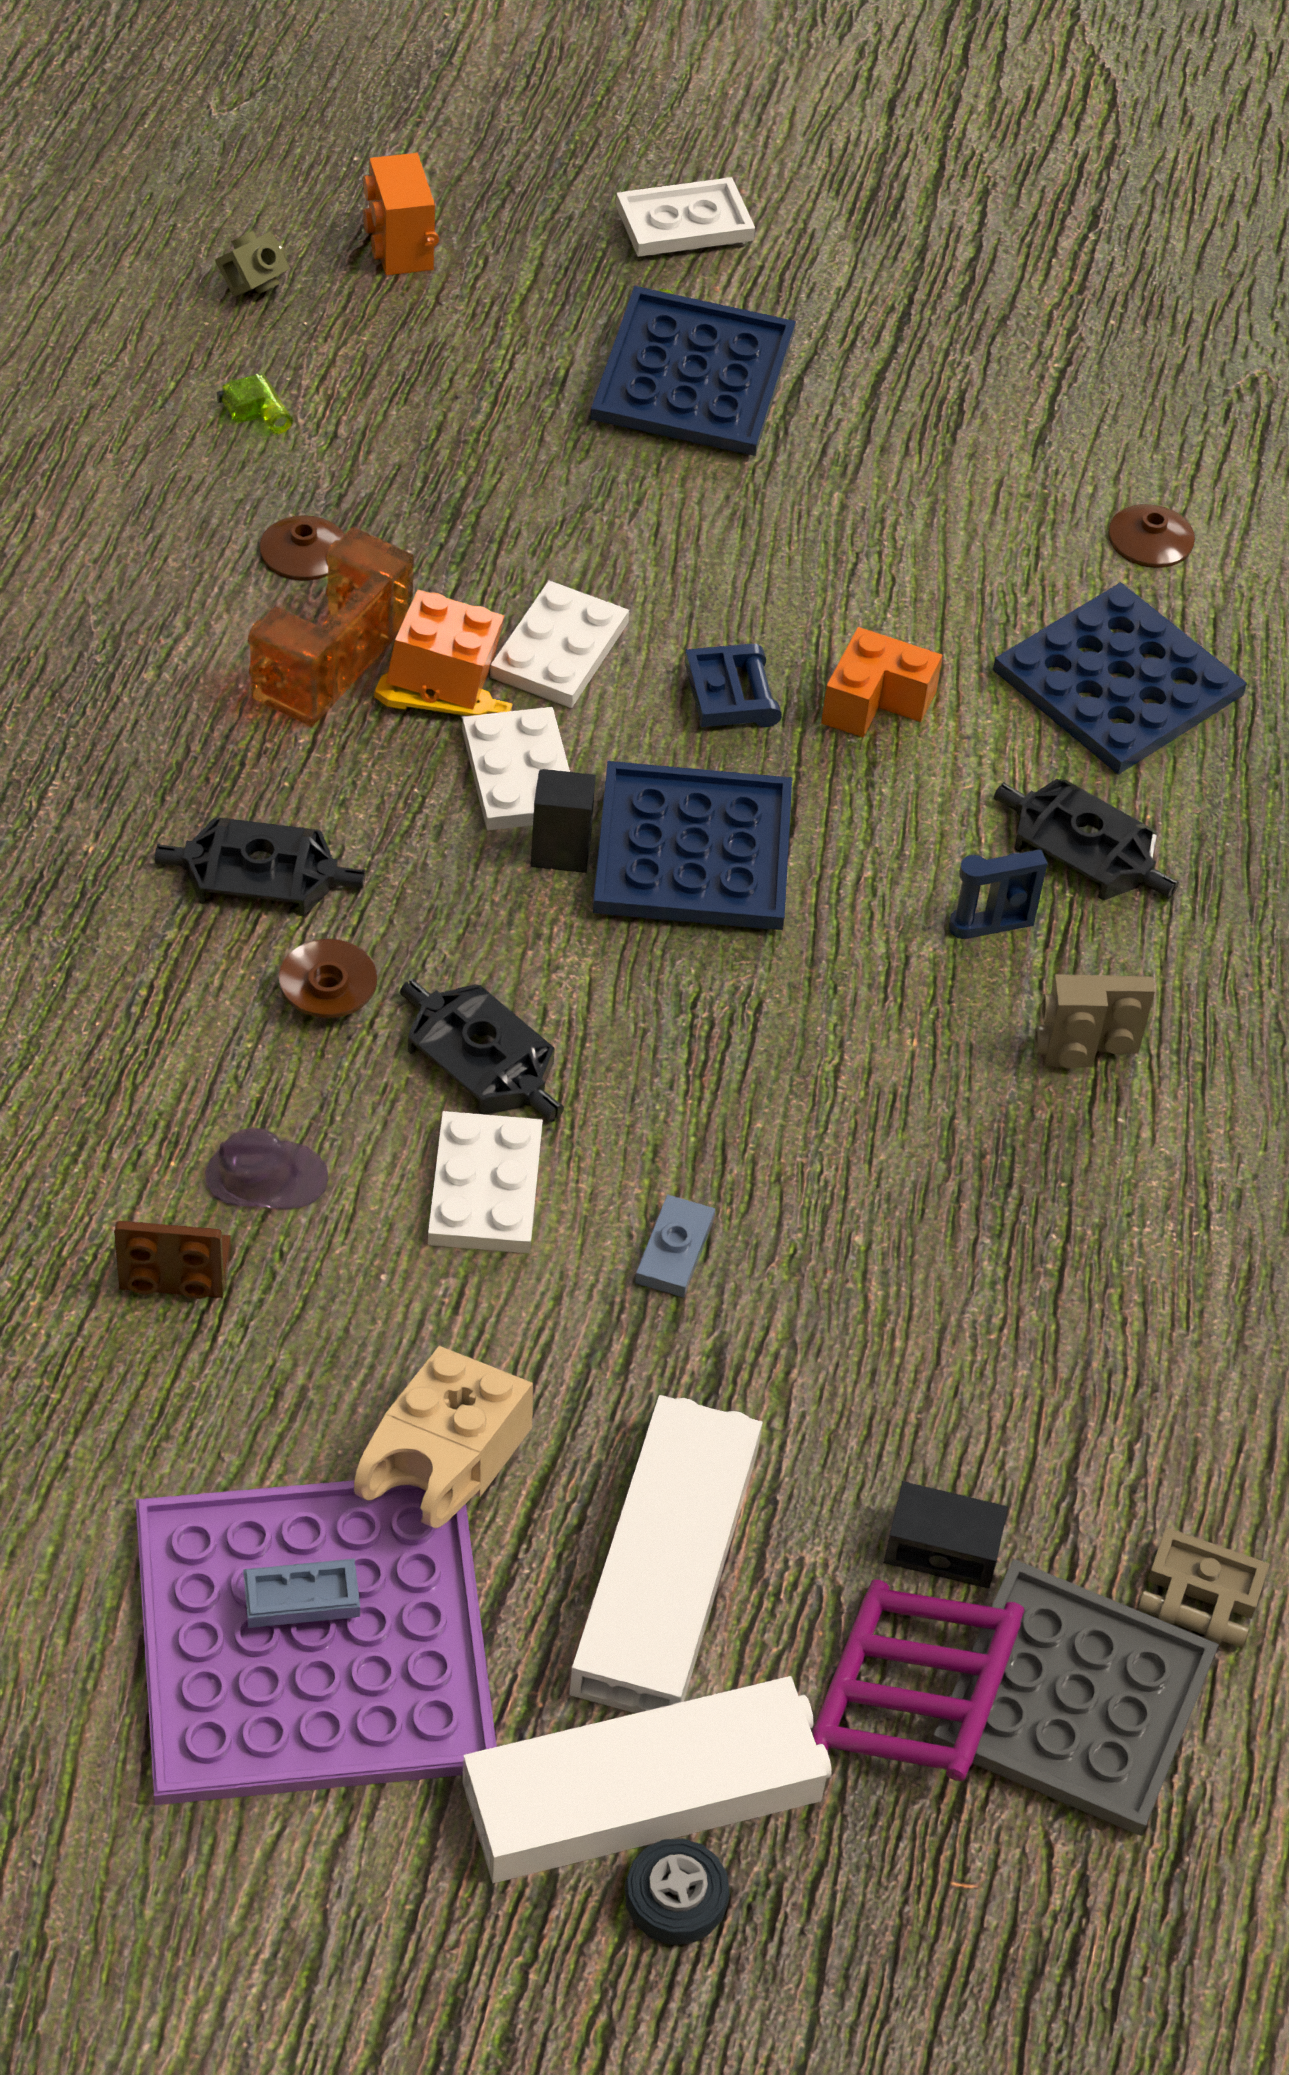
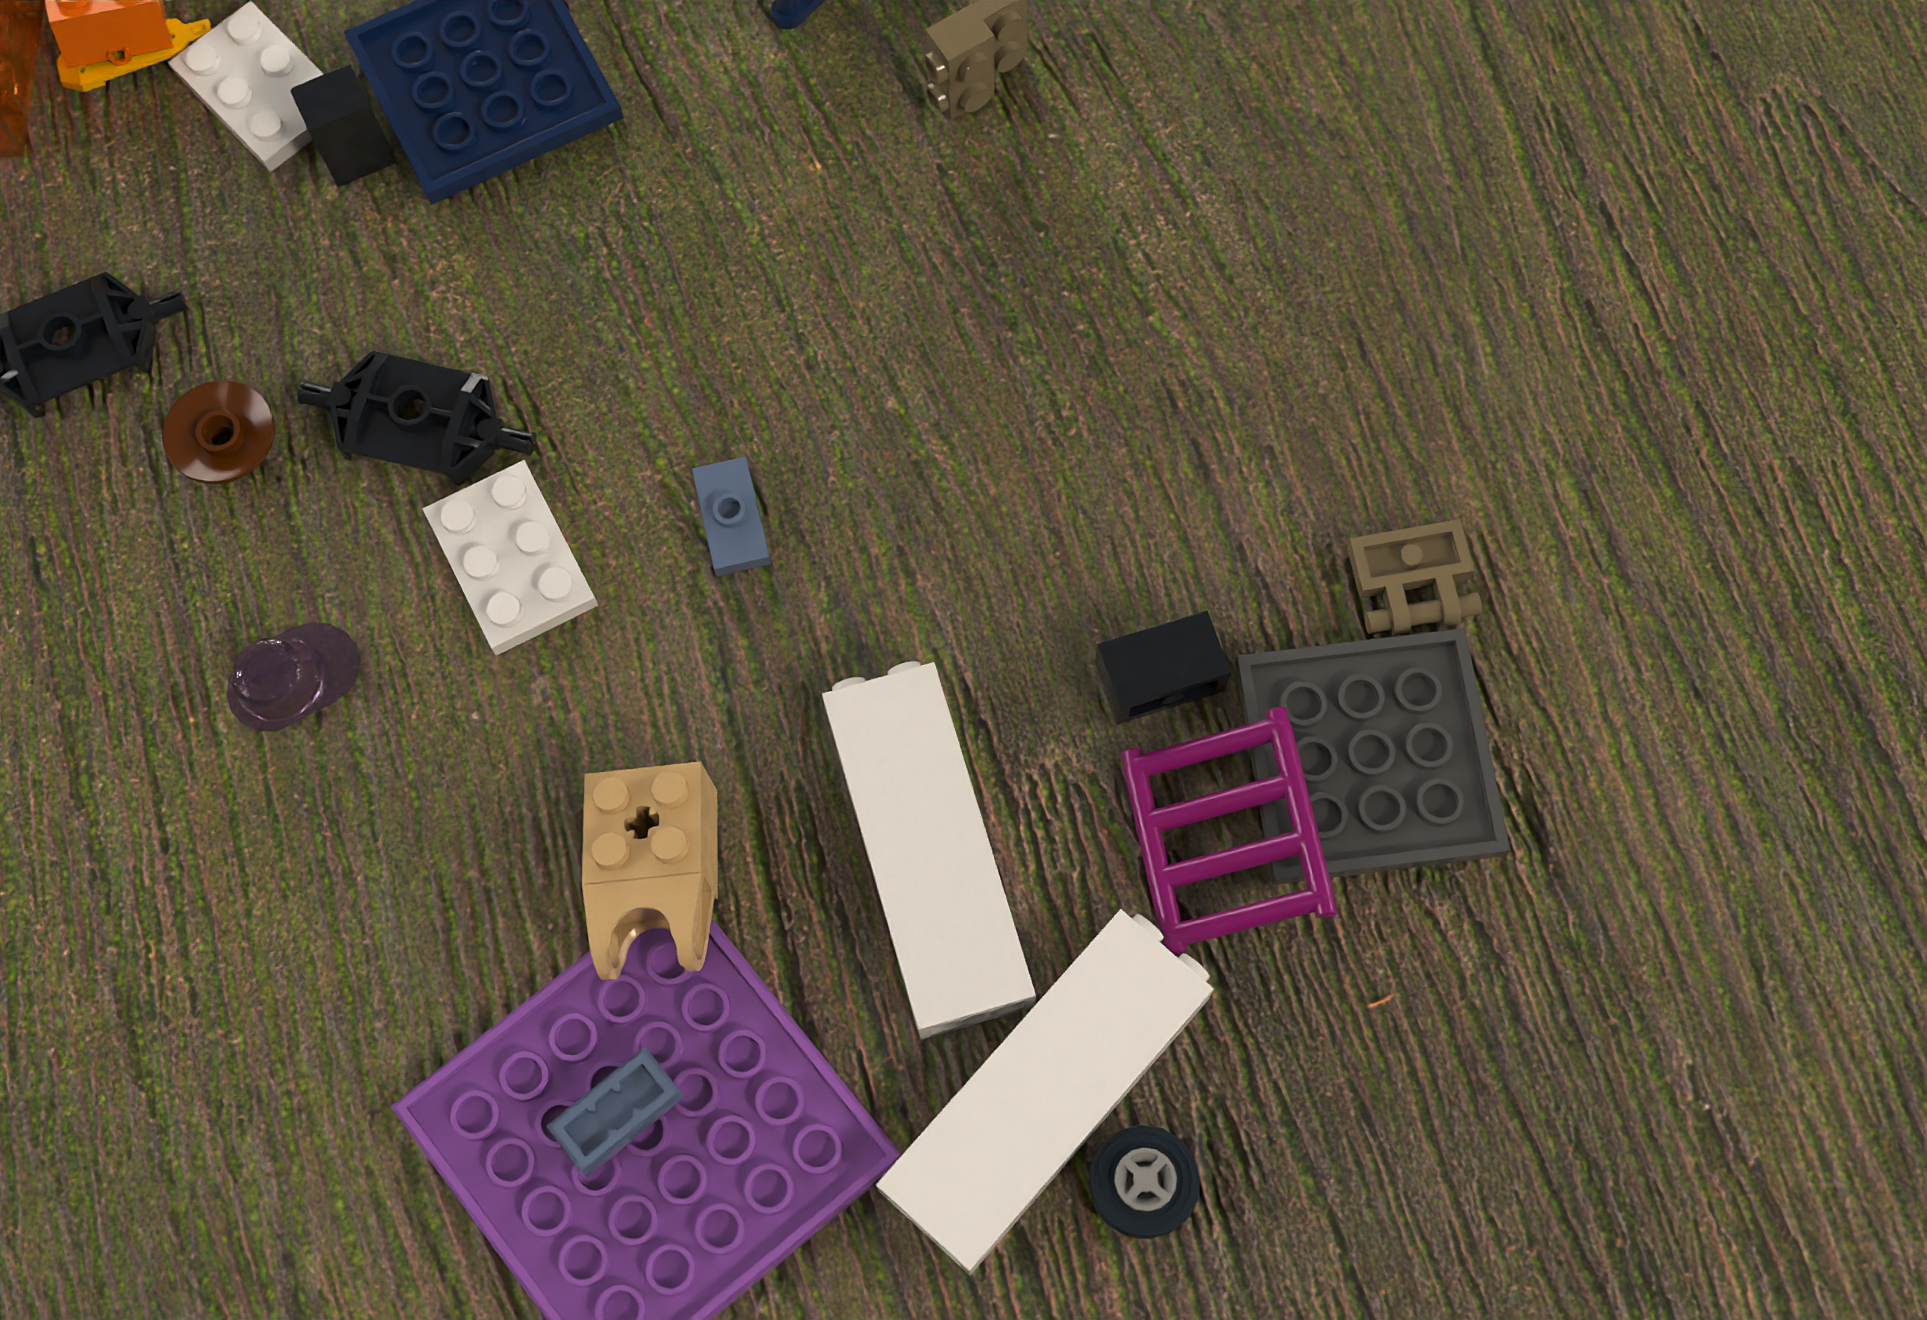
camera: 25 degrees left, 20 degrees up
(171, 1259) = (261, 831): reddish brown bracket -> none

